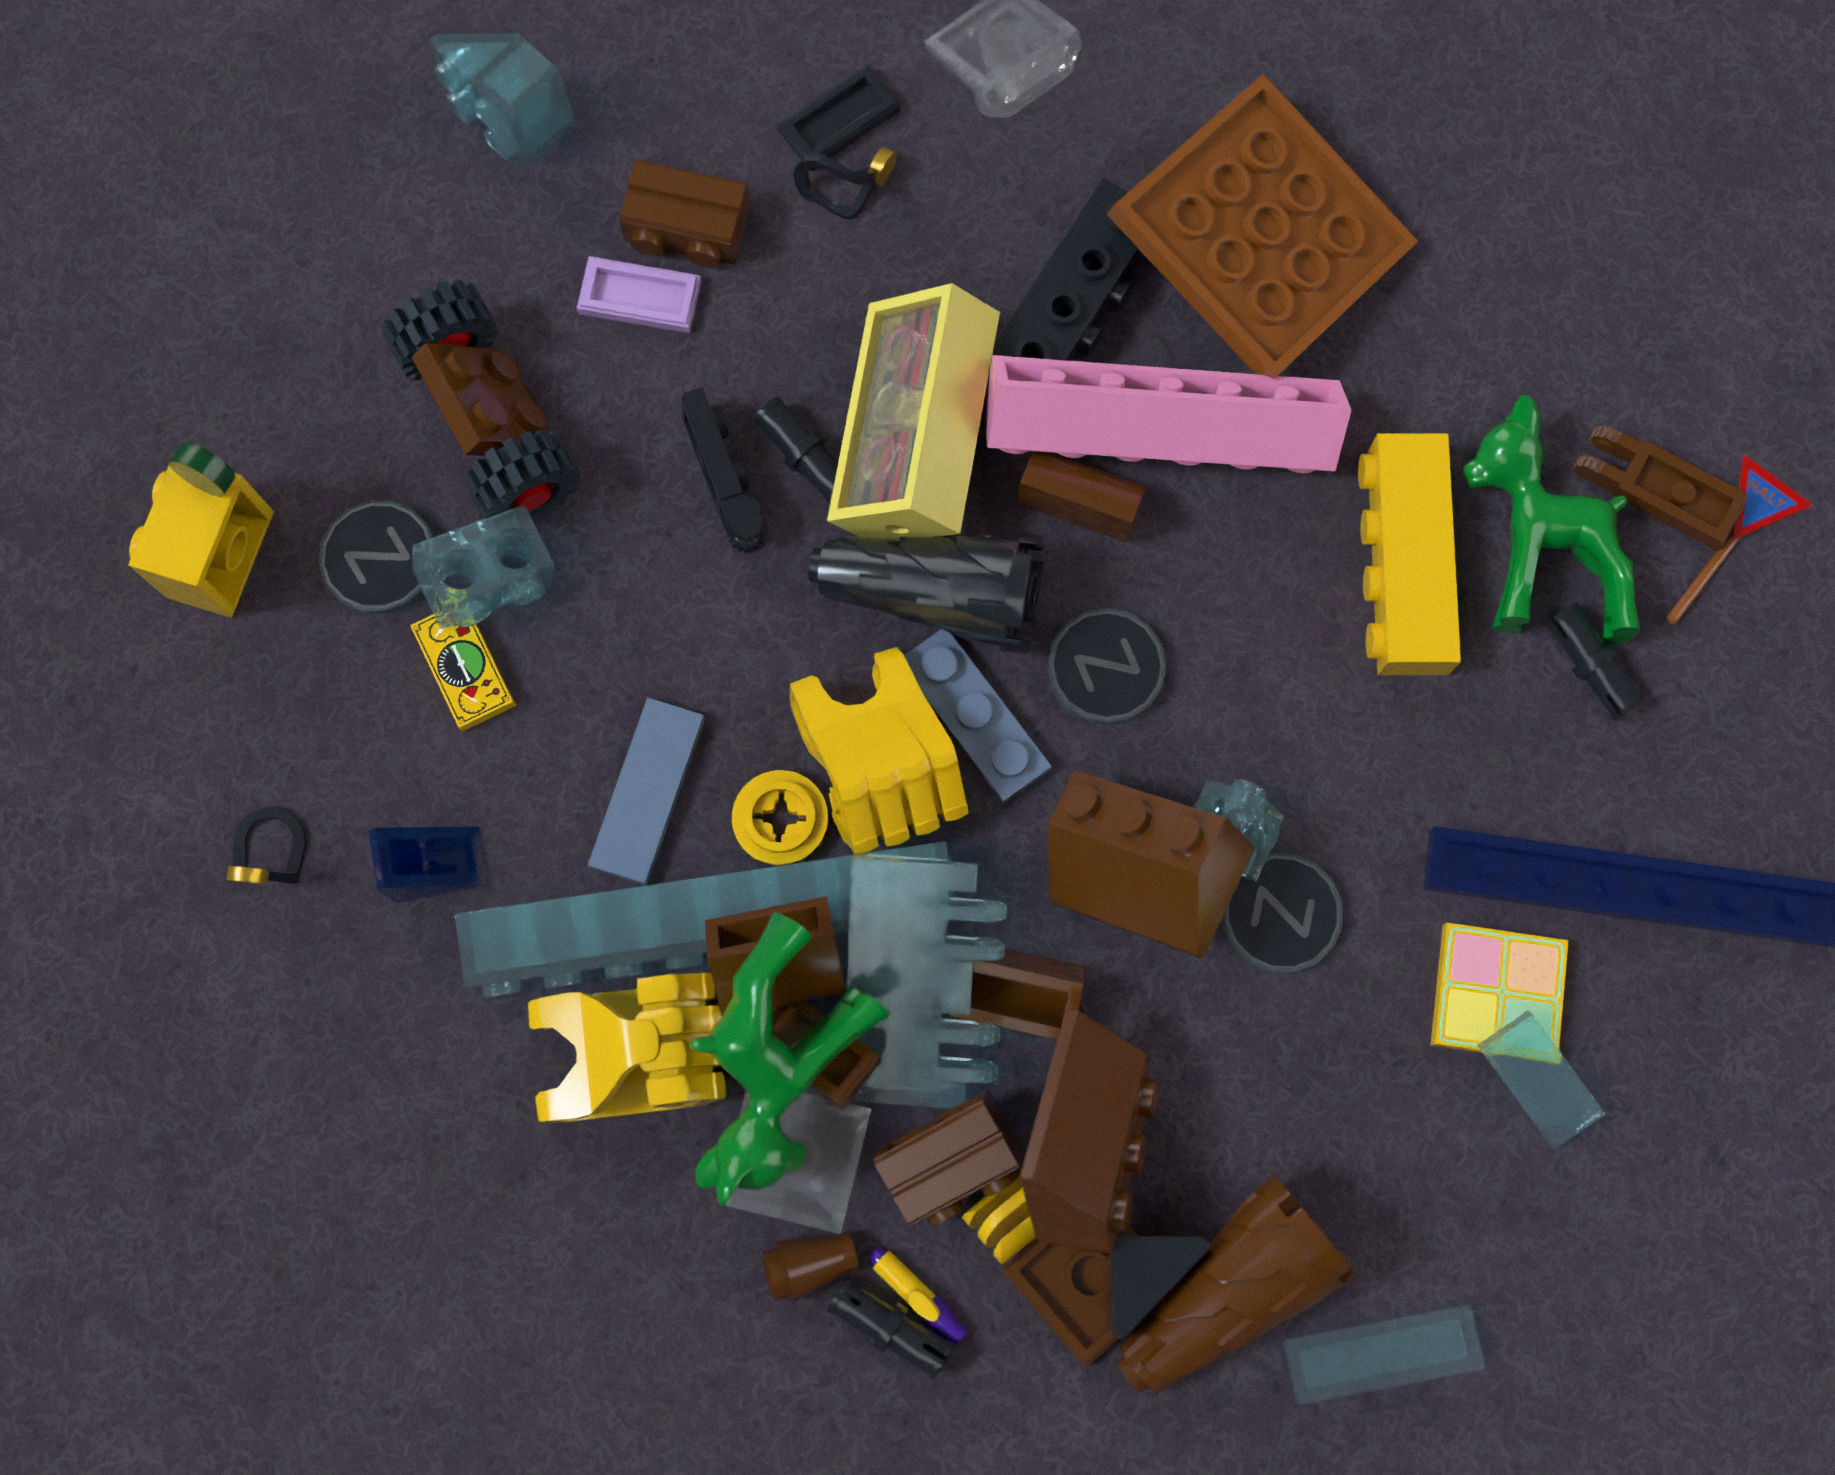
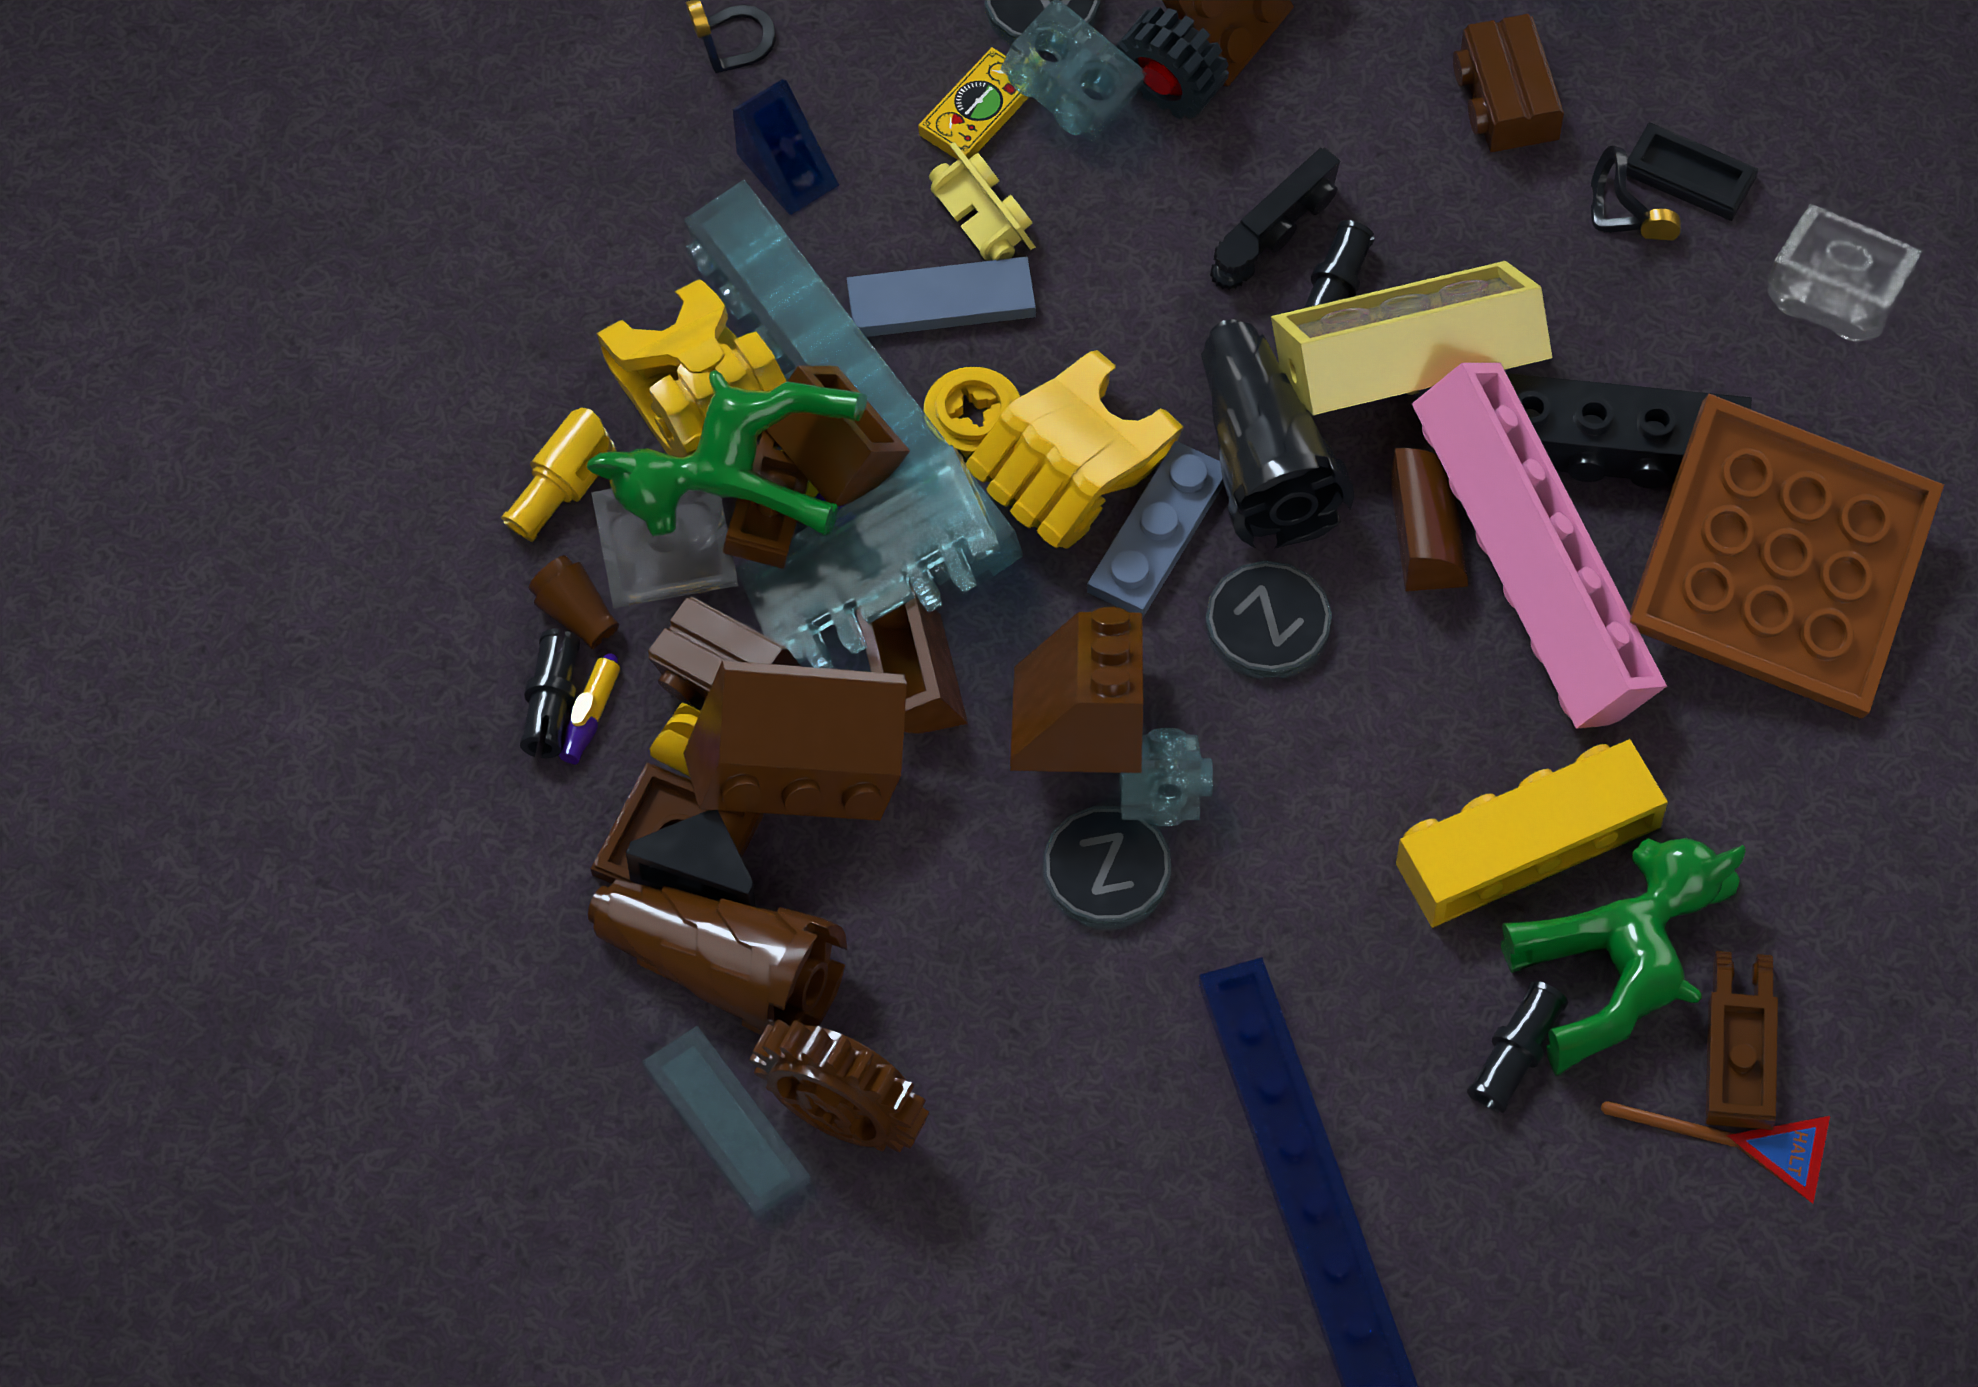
camera: 65 degrees right, 15 degrees down
(549, 713) = (968, 187): none -> light yellow hinge
(639, 294) = (1412, 88): lavender tile -> none
(666, 1217) = (559, 472): none -> yellow arm
(1434, 1249) = (839, 1086): none -> reddish brown gear
(1491, 980) = (1130, 1092): tile -> none
(1541, 1079) = (1060, 1152): clear light blue tile -> none

